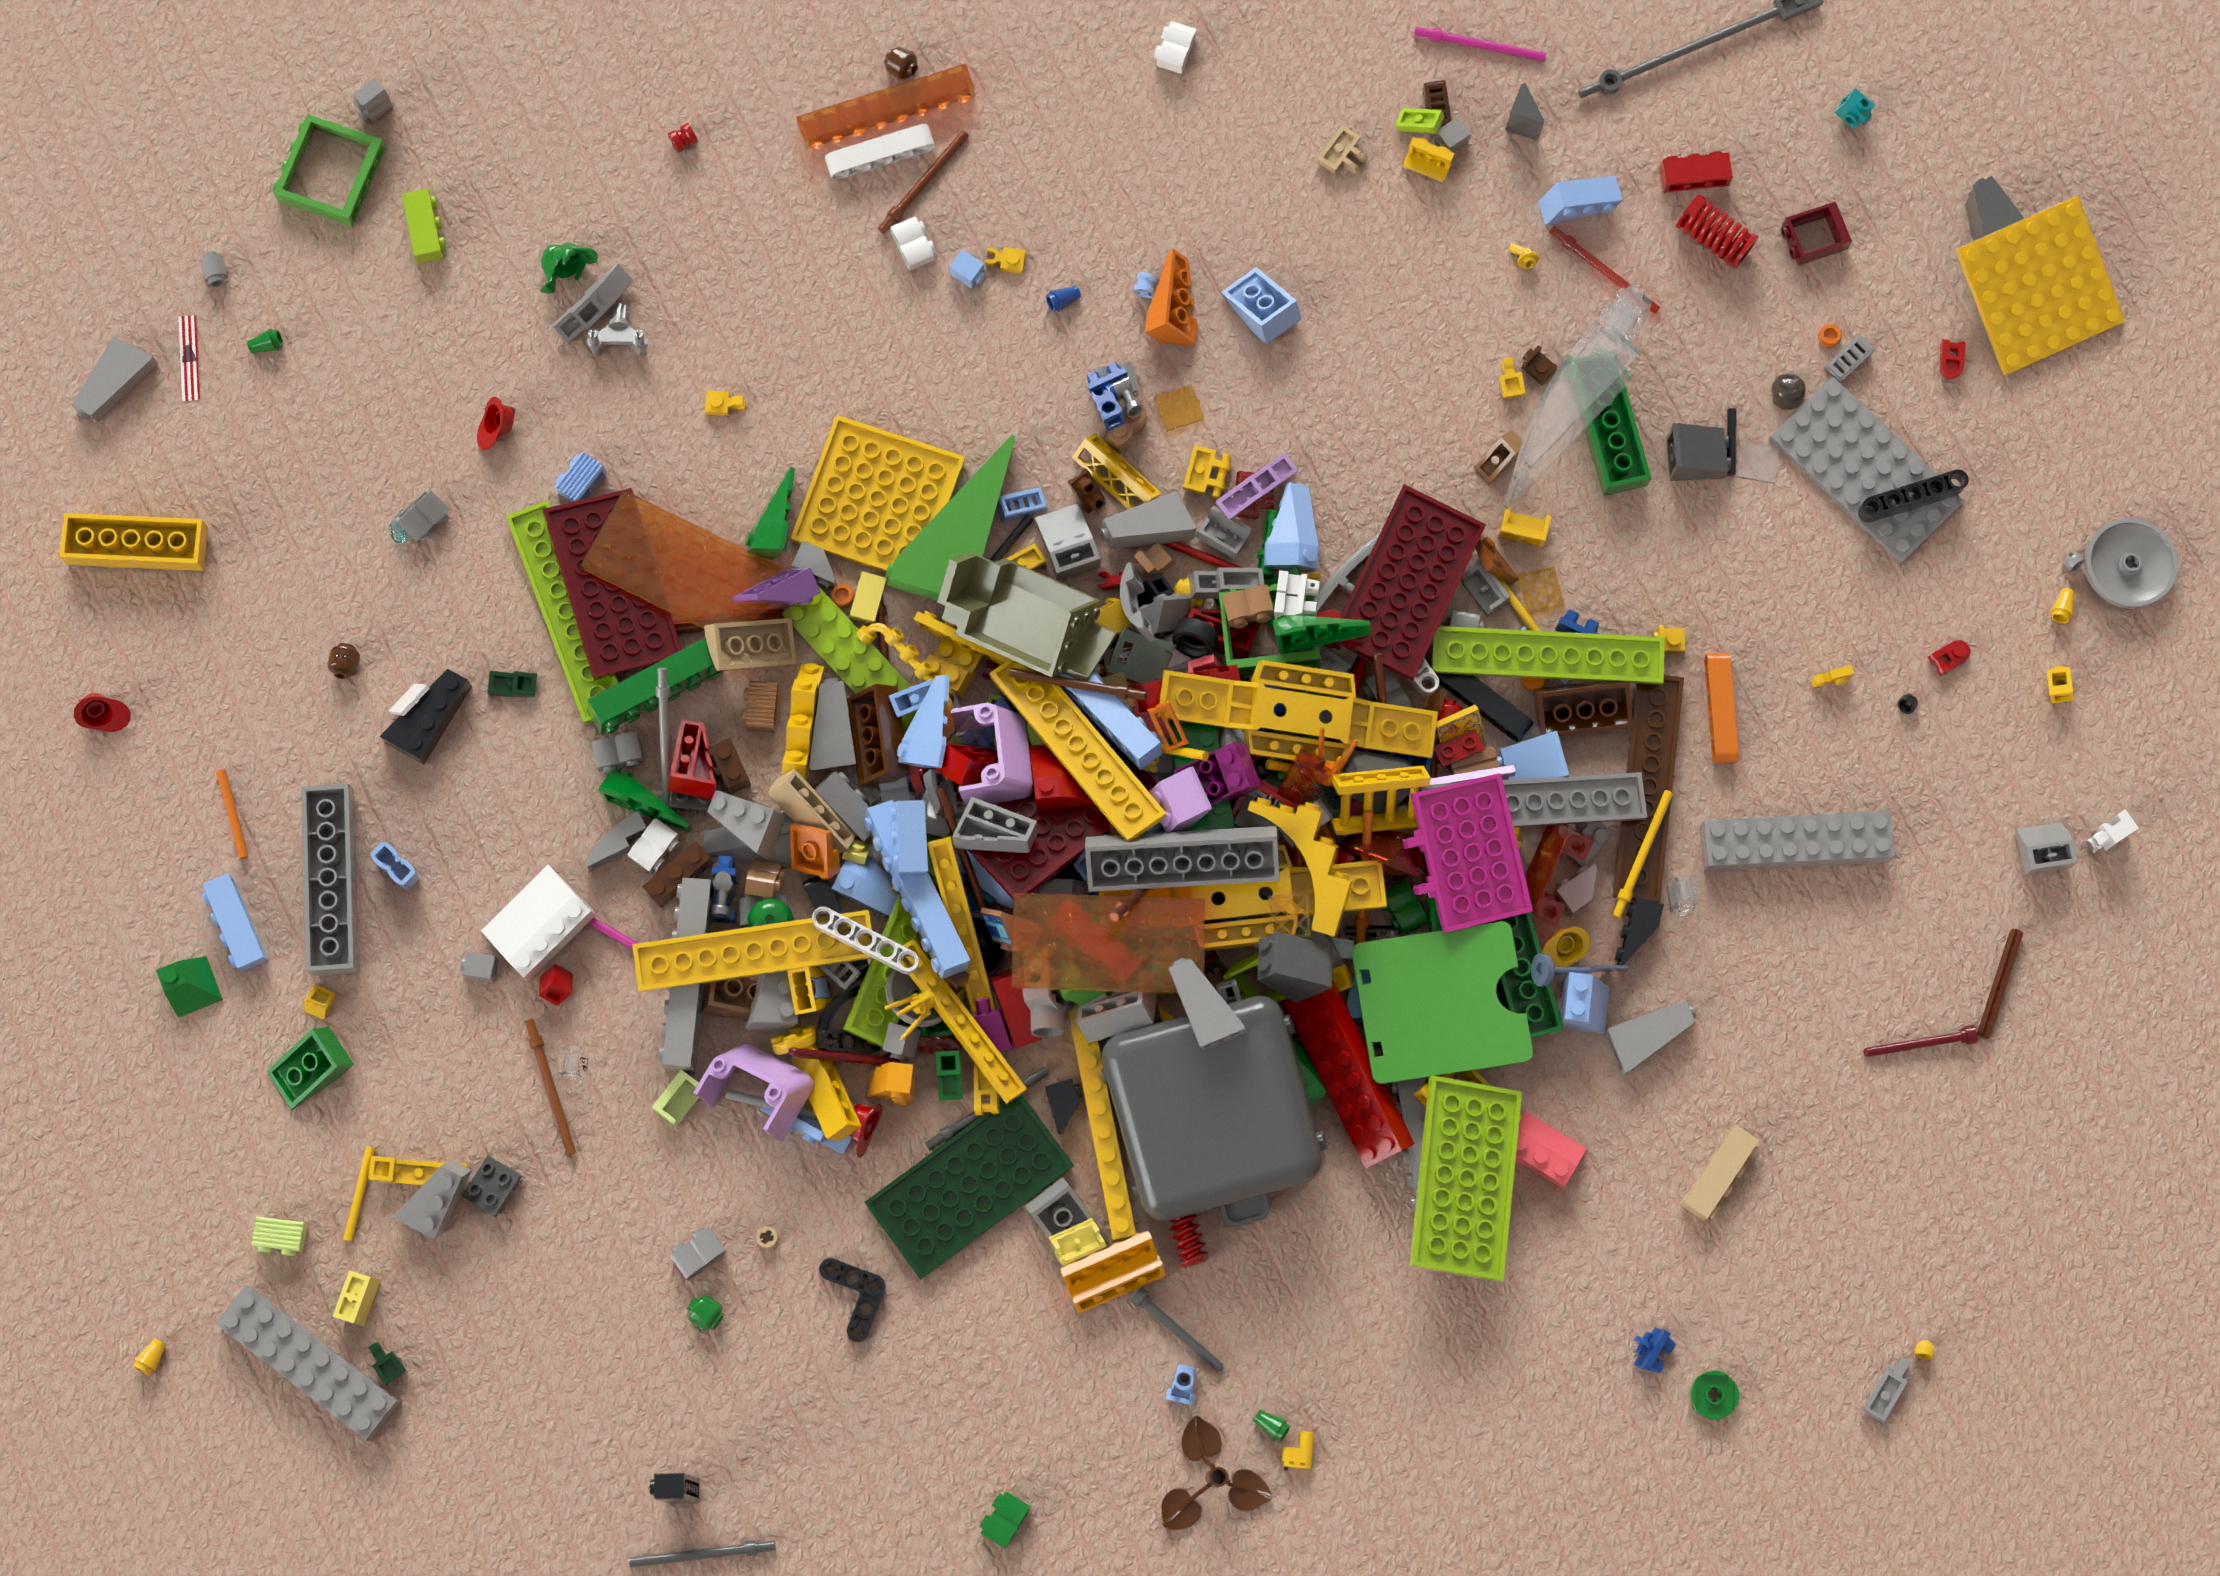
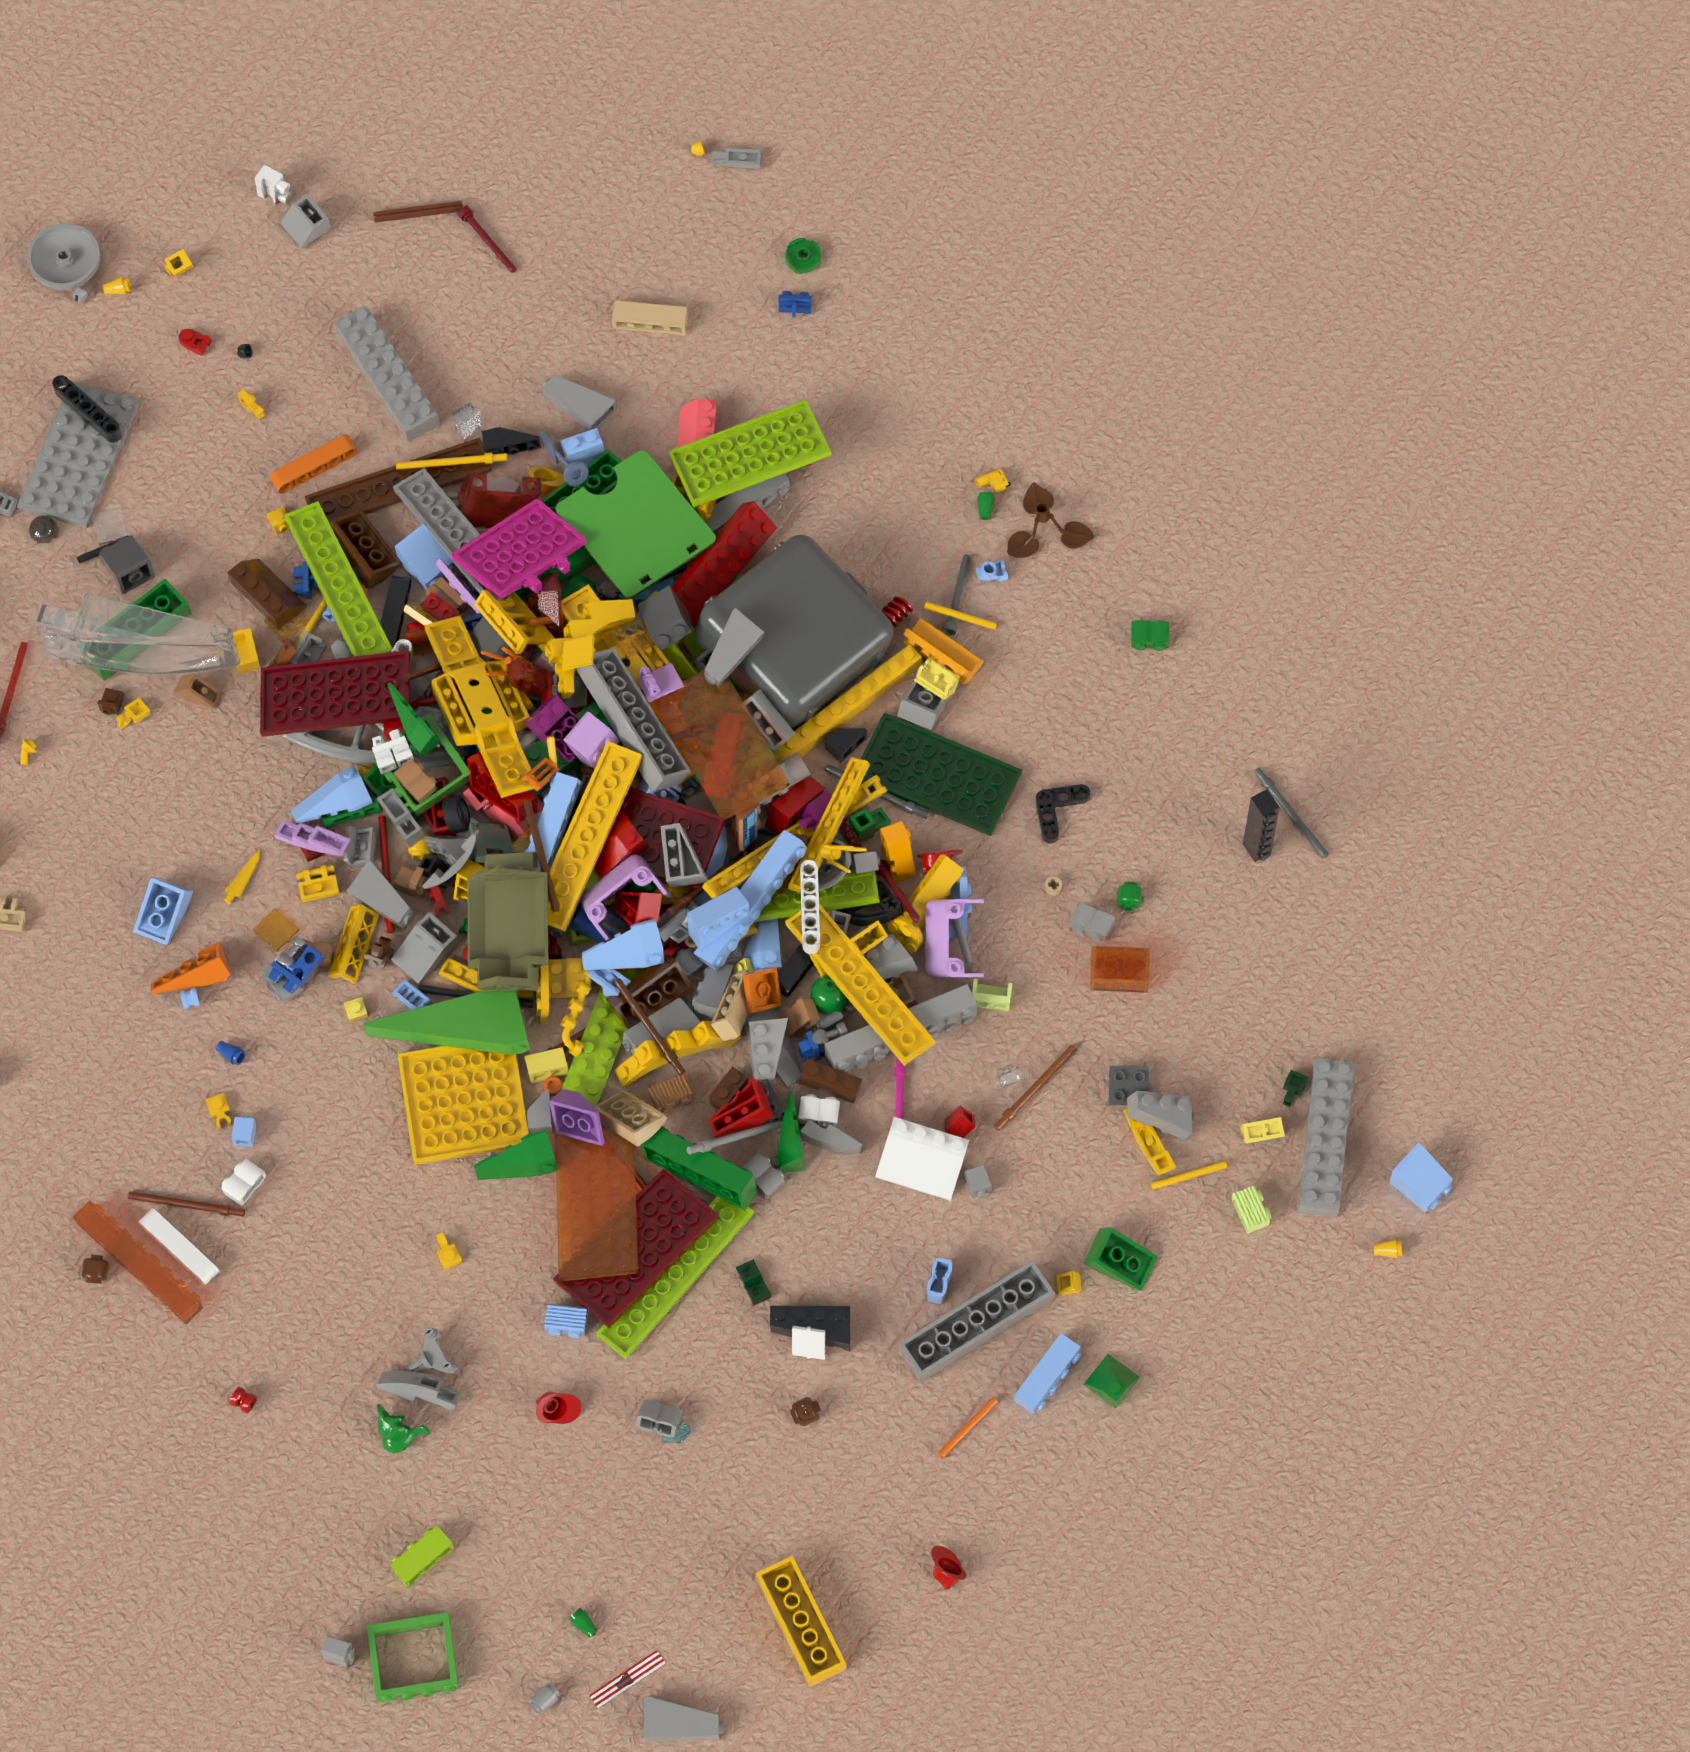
camera: 115 degrees left, 10 degrees down
(199, 1436) = (1421, 1178): none -> light blue slope
(624, 1249) = (1119, 969): none -> clear orange brick
(785, 711) = (670, 1056): none -> reddish brown bar
(1042, 442) = (355, 1009): none -> light yellow plate
(1146, 1315) = (960, 615): none -> yellow bar
(1215, 914) = (659, 682): none -> lavender hinge
(1254, 398) = (239, 883): none -> yellow bar
(1284, 830) = (578, 652): none -> yellow piece
(1585, 582) = (266, 591): none -> reddish brown slope

